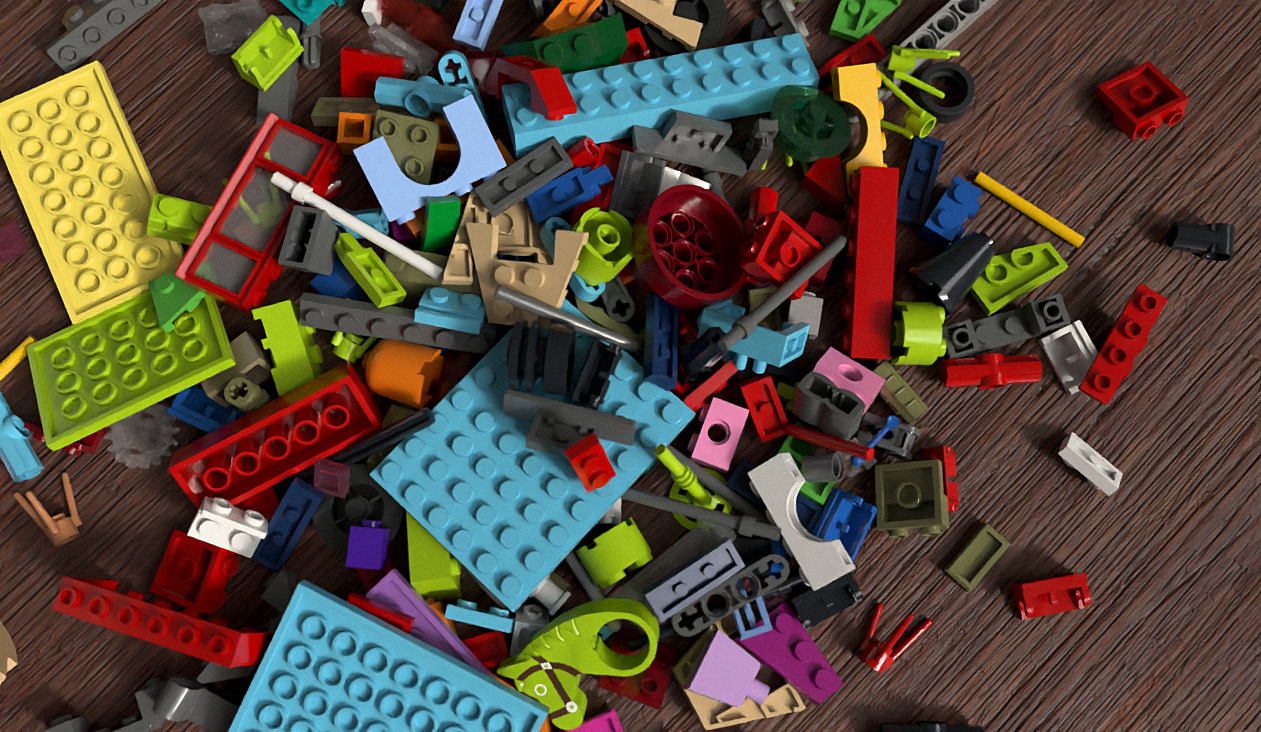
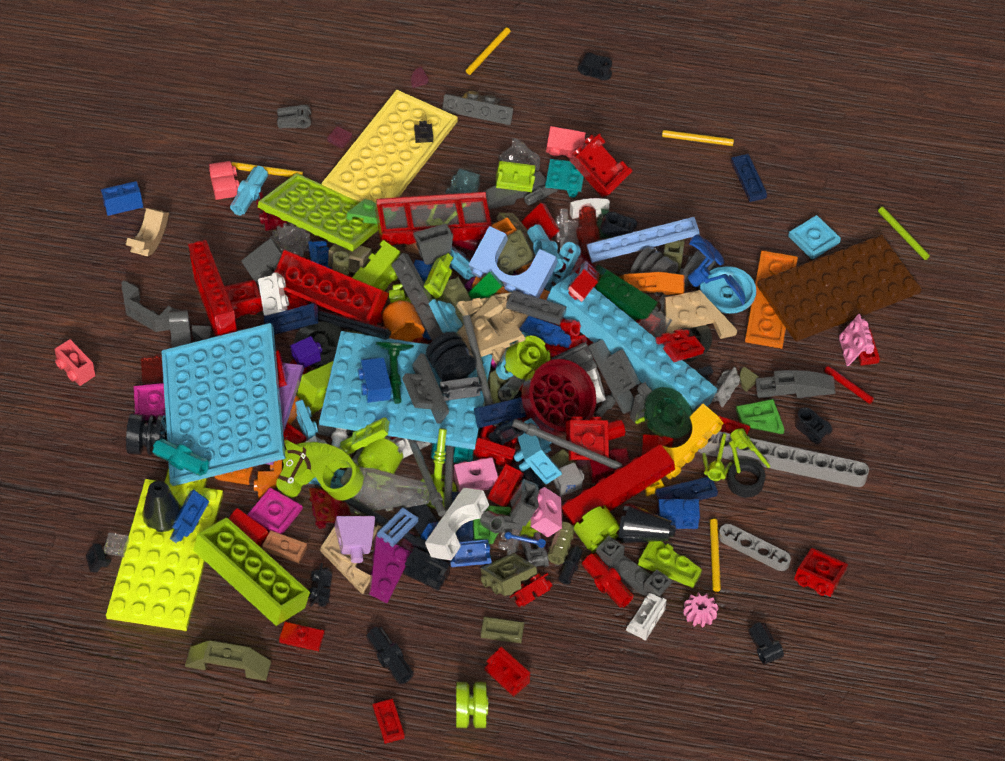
camera: 55 degrees right, 25 degrees down
(58, 528) = (221, 235): nougat plant -> none
(91, 124) = (423, 132): none -> black tile
(156, 499) = (263, 260): none -> dark grey hinge
(176, 218) = (403, 186): lime brick -> none
(225, 132) = (464, 182): none -> clear light blue brick
(304, 194) = (455, 226): white bar -> none
(331, 477) = (327, 320): clear pink tile -> none
(470, 428) = (395, 381): none -> dark green dish
(506, 491) = (375, 380): none -> blue brick
(583, 557) = (366, 435): none -> lime hinge
(590, 463) = (414, 402): red plate -> none
(646, 39) = (656, 323): none -> clear piece
(693, 579) = (391, 490): plate -> none
(722, 31) = (679, 345): none -> red plate
(733, 599) = (394, 515): dark grey beam -> none
(830, 441) = (507, 513): red bar -> none
(881, 655) = (416, 607): red plant -> none
(935, 401) = (570, 565): none -> black axle
(1048, 153) = (756, 544): none -> light grey beam
(1091, 464) = (593, 653): white plate -> none
(1092, 686) = (471, 704): none -> lime wheel
(1118, 283) = (700, 609): none -> bright pink gear
(1122, 344) = (668, 629): red bracket -> none

